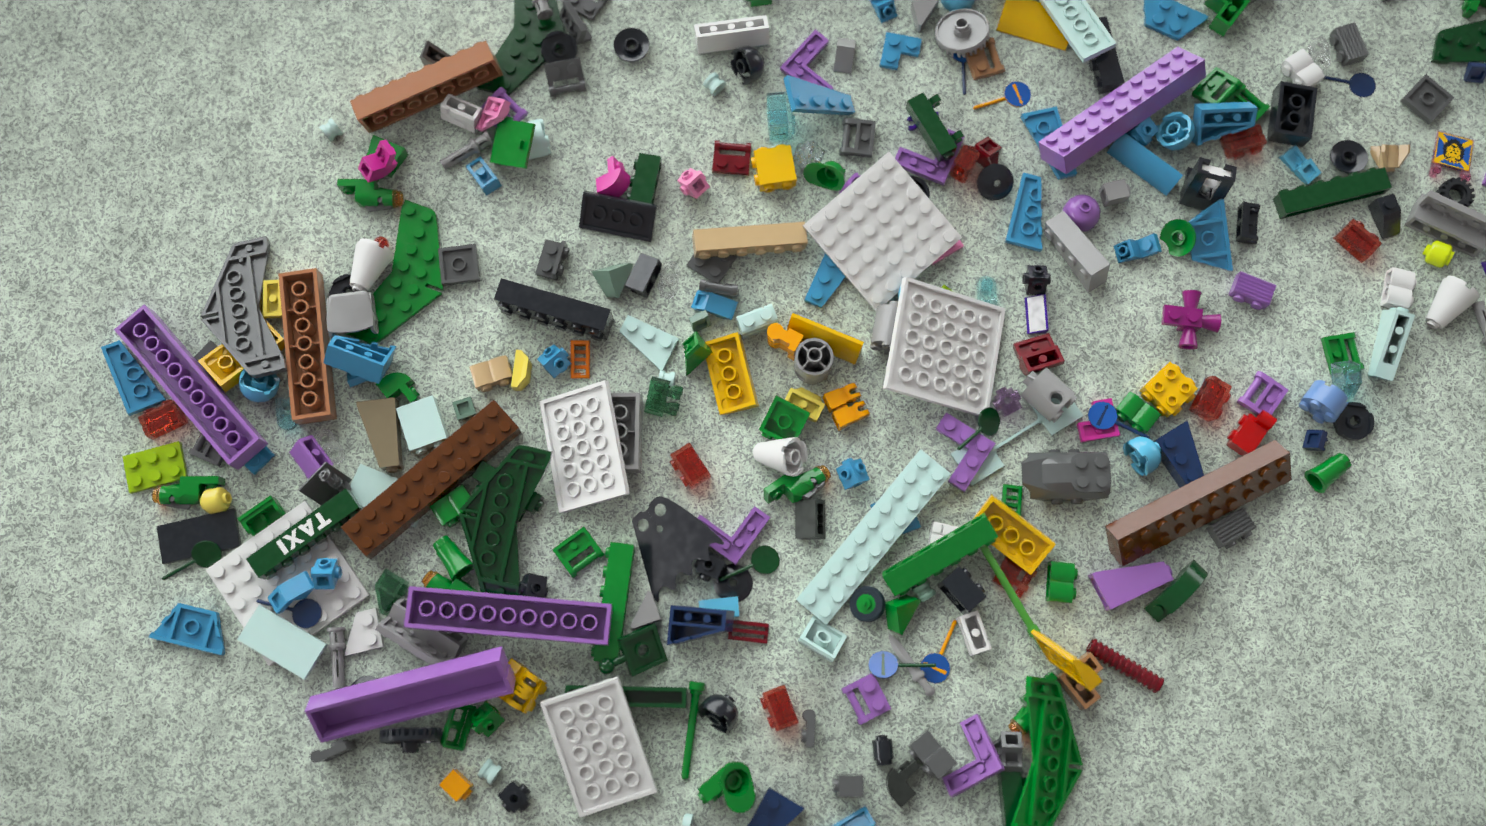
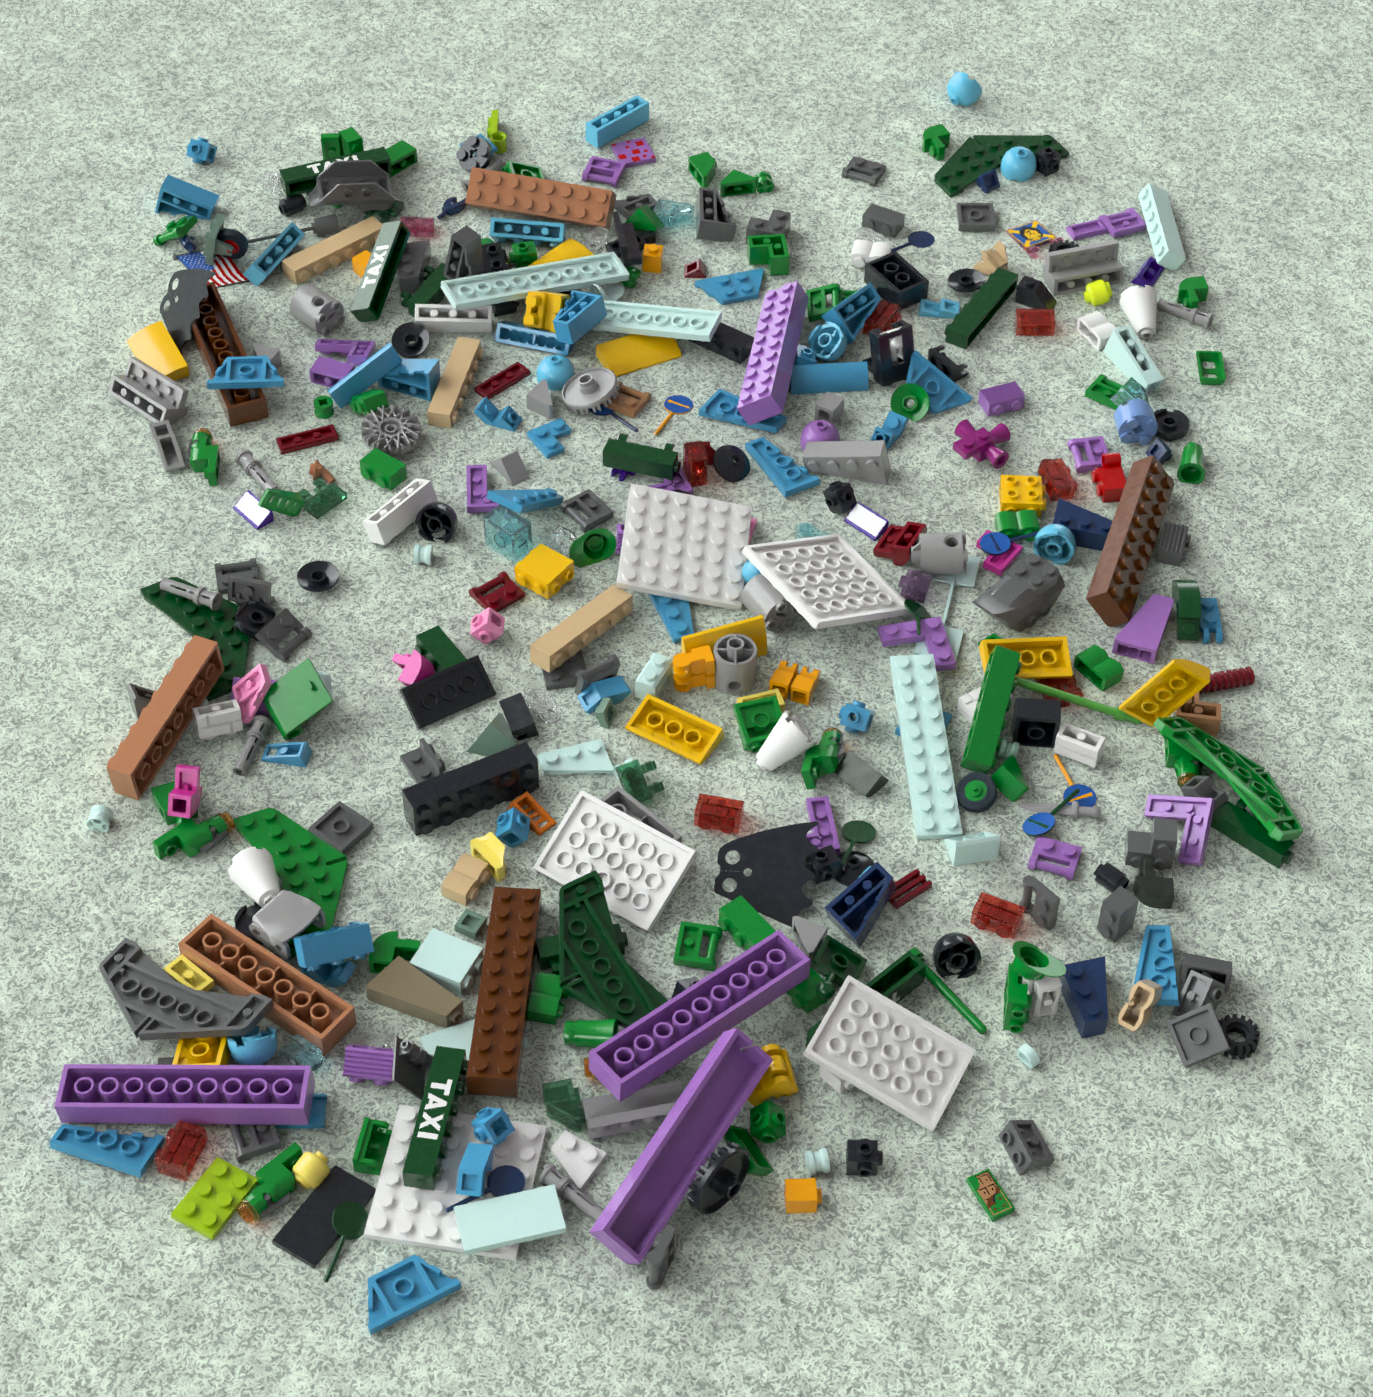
camera: 45 degrees left, 30 degrees down
(695, 351) = (626, 733): green slope -> none
(1186, 613) = (1210, 620): none -> dark azure hinge
(1450, 404) = (1219, 371): none -> green piece

